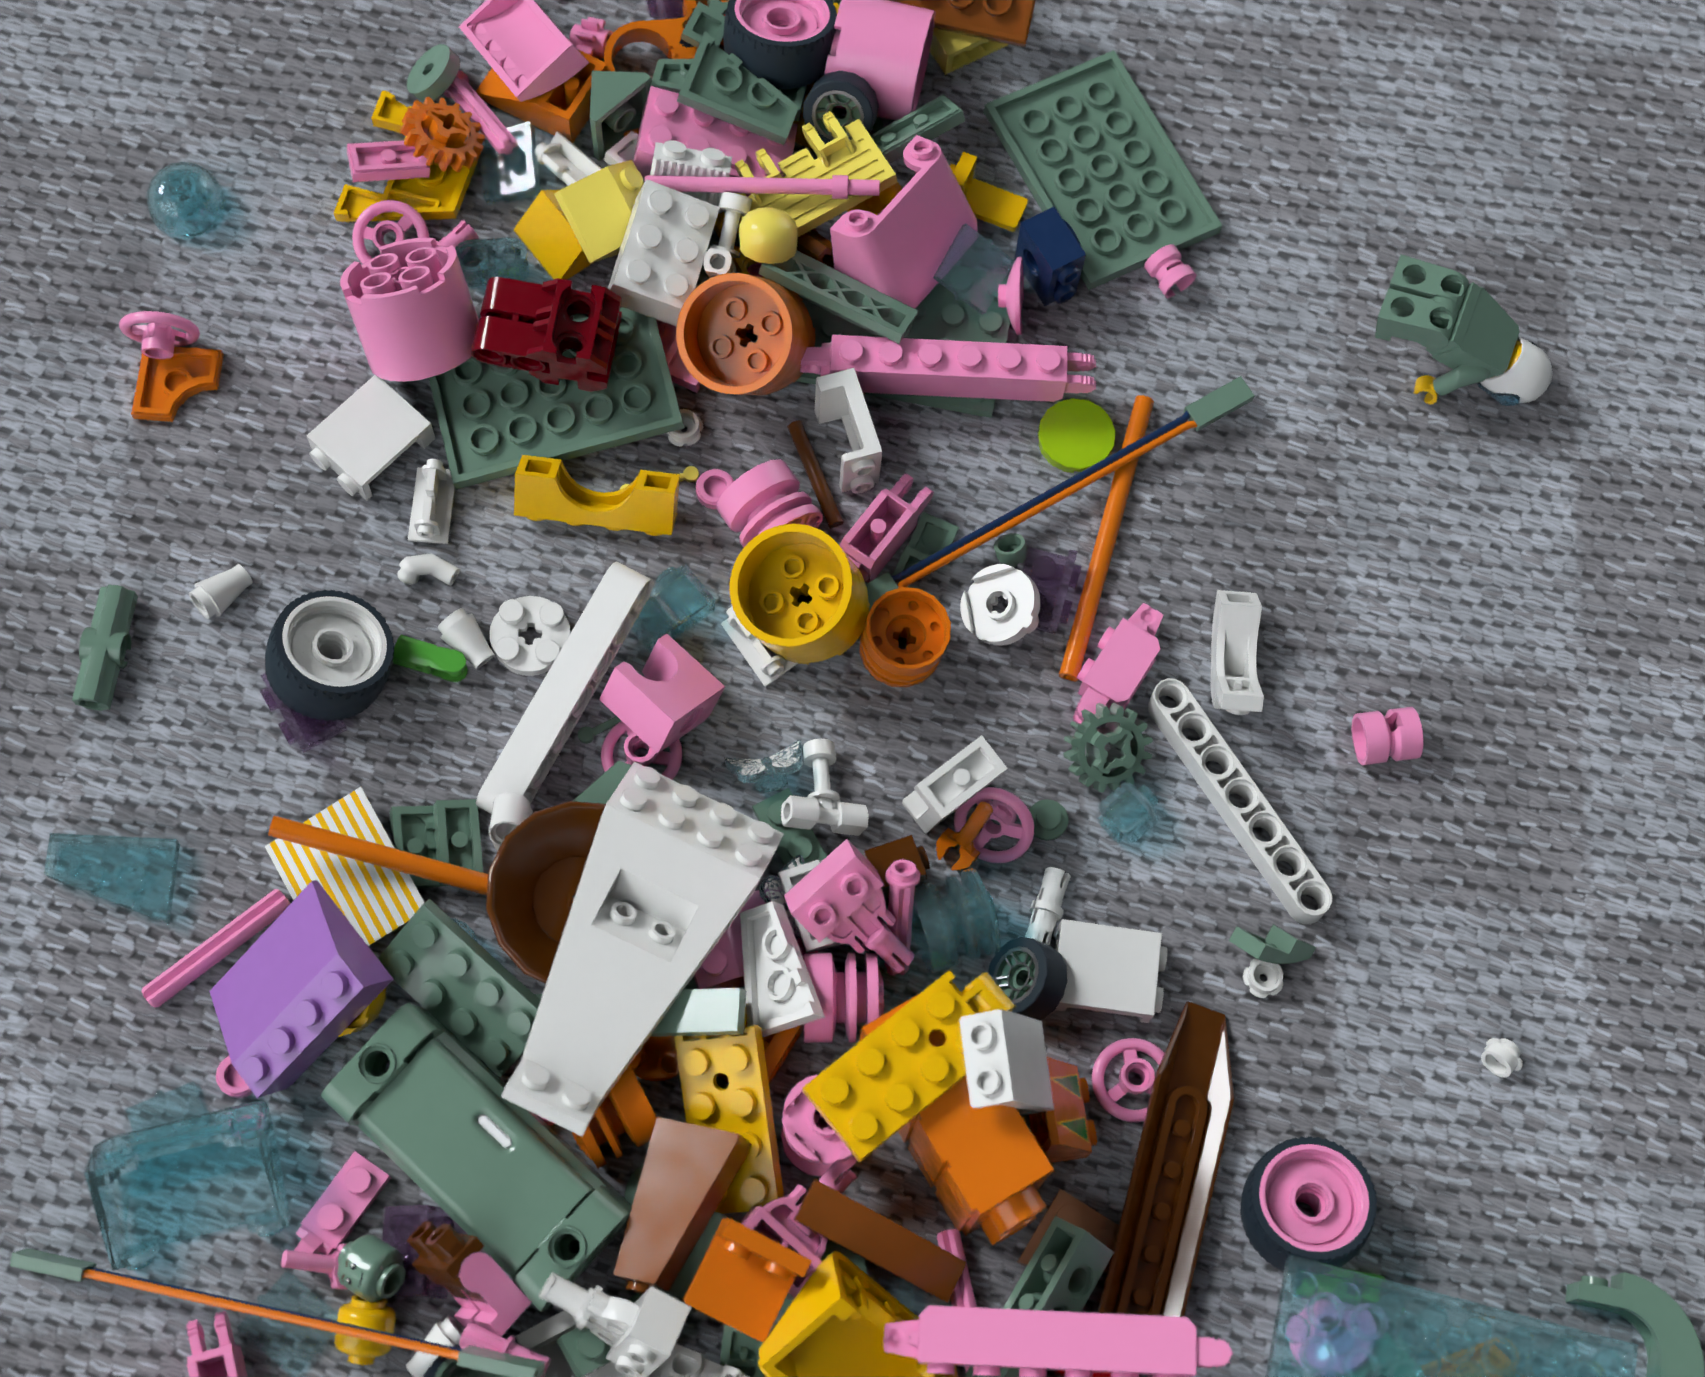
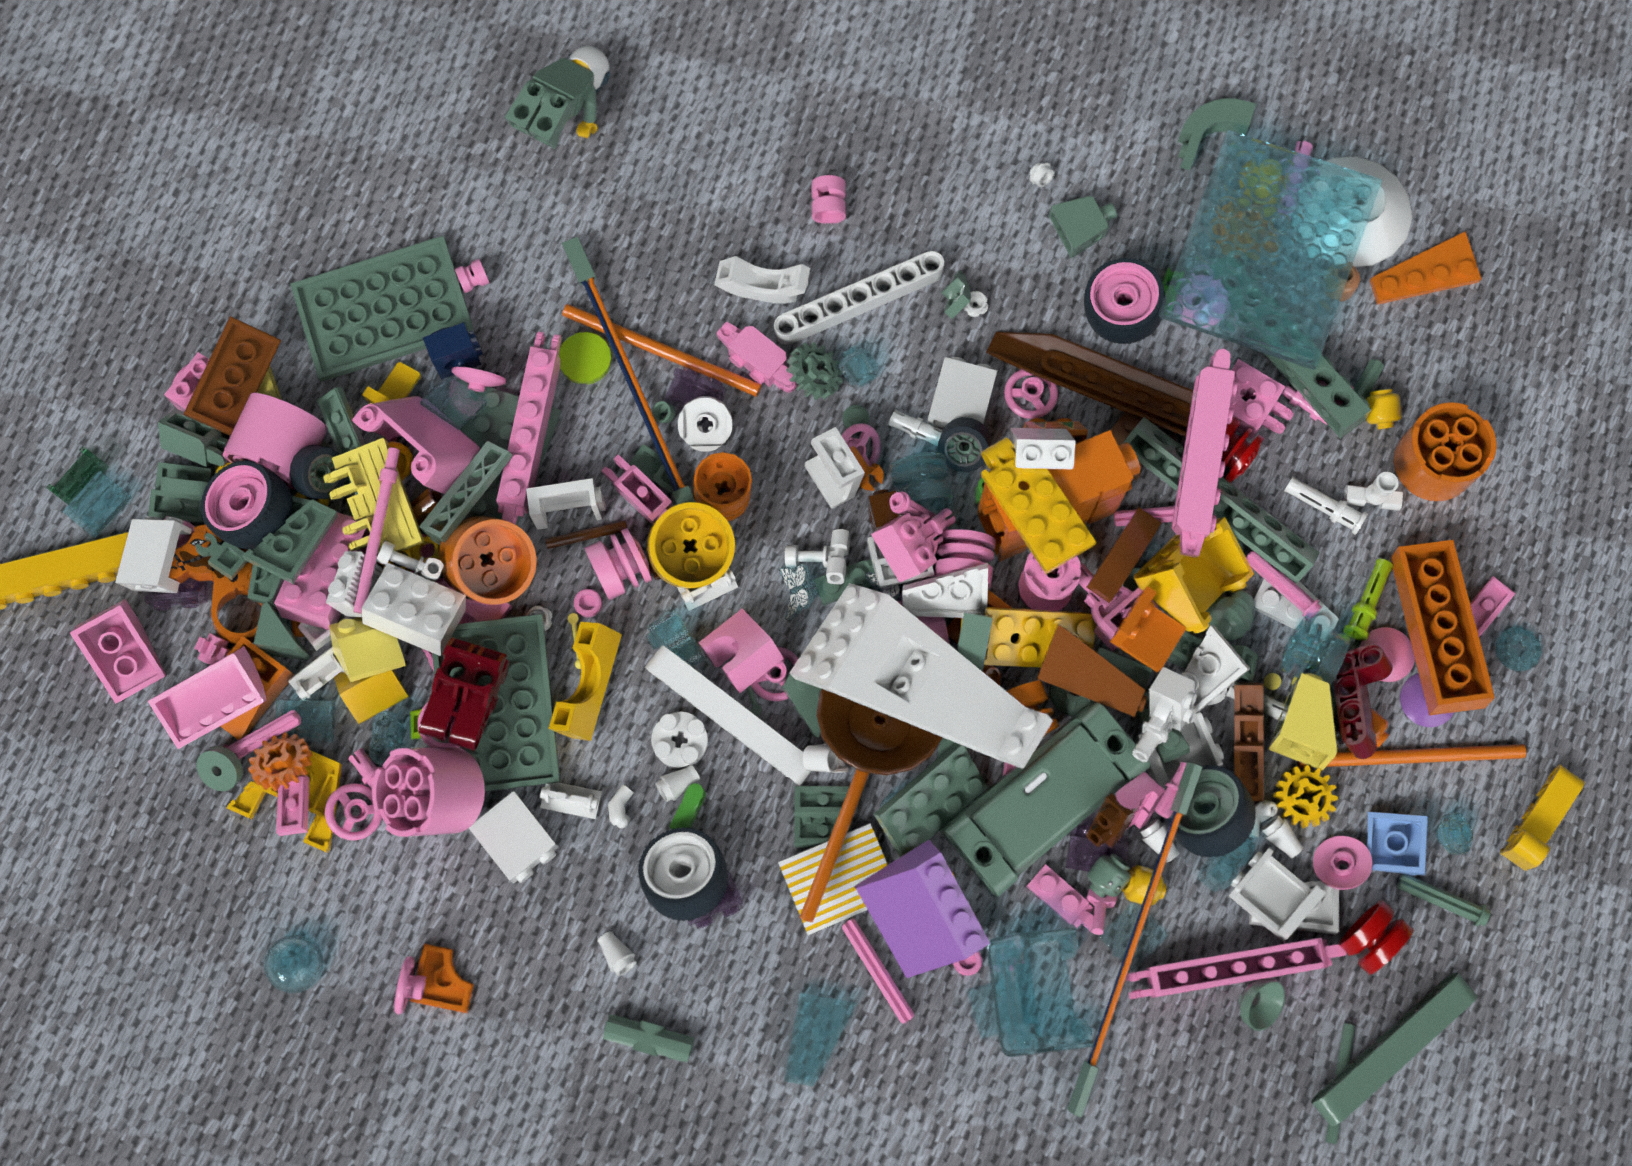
camera: 75 degrees left, 5 degrees up
(768, 235) = (418, 531): light yellow hair -> none
(1431, 1128) = (1081, 223): none -> sand green torso

